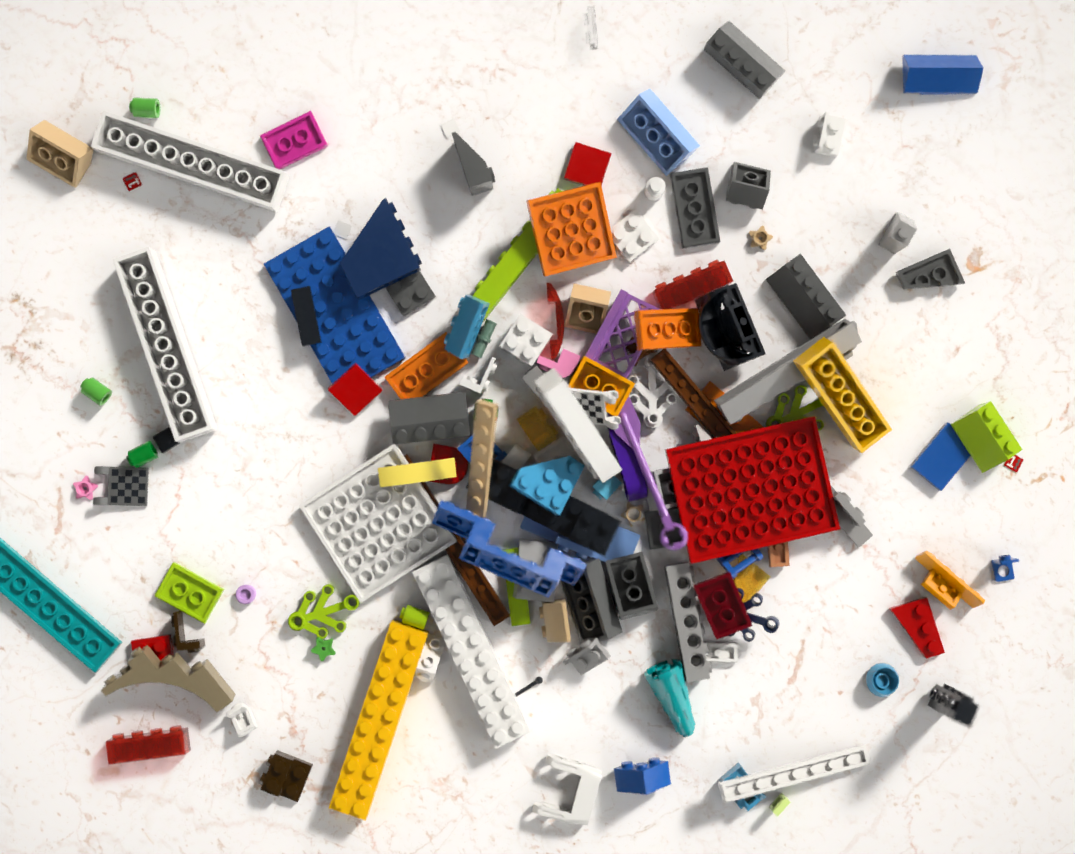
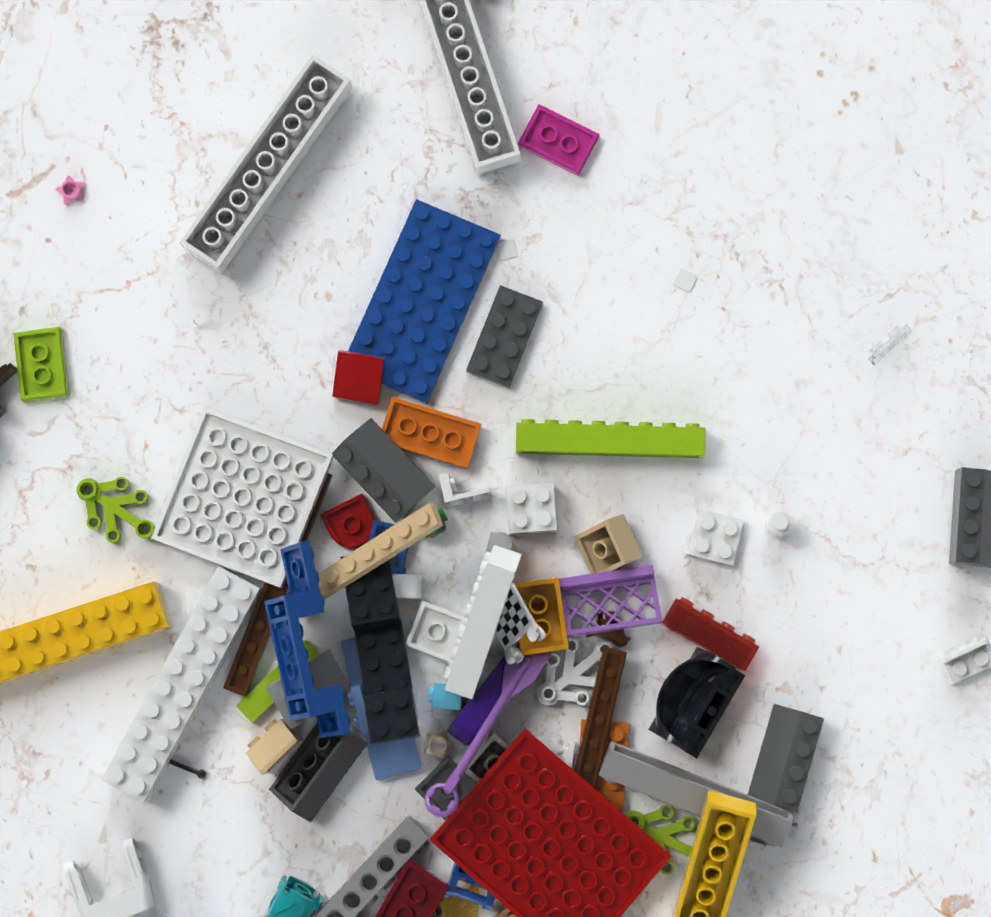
camera: 55 degrees right, 5 degrees down
(95, 391) = (173, 131): bright green brick -> none
(125, 486) = (101, 227): dark grey flag -> none
(132, 181) = (402, 17): red sticker -> none
(142, 454) = (143, 220): green brick -> none
(165, 440) = (173, 232): black plate -> none
(245, 594) = (78, 420): lavender tile -> none
(306, 316) = (395, 277): black tile -> none
(323, 643) = (85, 532): bright green plate -> none
(380, 254) = (509, 303): dark blue slope -> none
(414, 617) = (175, 602): lime brick -> none
(417, 472) = (320, 498): light yellow slope -> none
(430, 658) = (144, 648): white bracket -> none
(466, 326) = (500, 439): dark azure slope -> none
(478, 175) = (659, 338): dark grey slope -> none
(484, 338) = (502, 466): sand green pin -> none
(537, 428) = (451, 585): clear yellow brick -> none
(549, 482) = (405, 635): dark azure plate -> none
(553, 298) = (549, 542): clear red slope -> none
(565, 366) = (535, 566): bright pink brick -> none
(571, 229) = (674, 471): orange plate -> none
(587, 165) = (750, 441): red tile -> none
(587, 656) = (260, 804): light grey bracket -> none
(631, 586) = (363, 796): dark grey slope -> none
(658, 132) = (837, 485): light blue slope -> none
(667, 328) = (647, 640): orange tile -> none
(695, 207) = (790, 579): dark grey tile -> none
(748, 185) = (853, 615): dark grey slope -> none
(760, 233) = (815, 672): tan plate -> none
(898, 233) = (921, 804): light grey slope -> none
(931, 272) = (908, 868): dark grey wing -> none

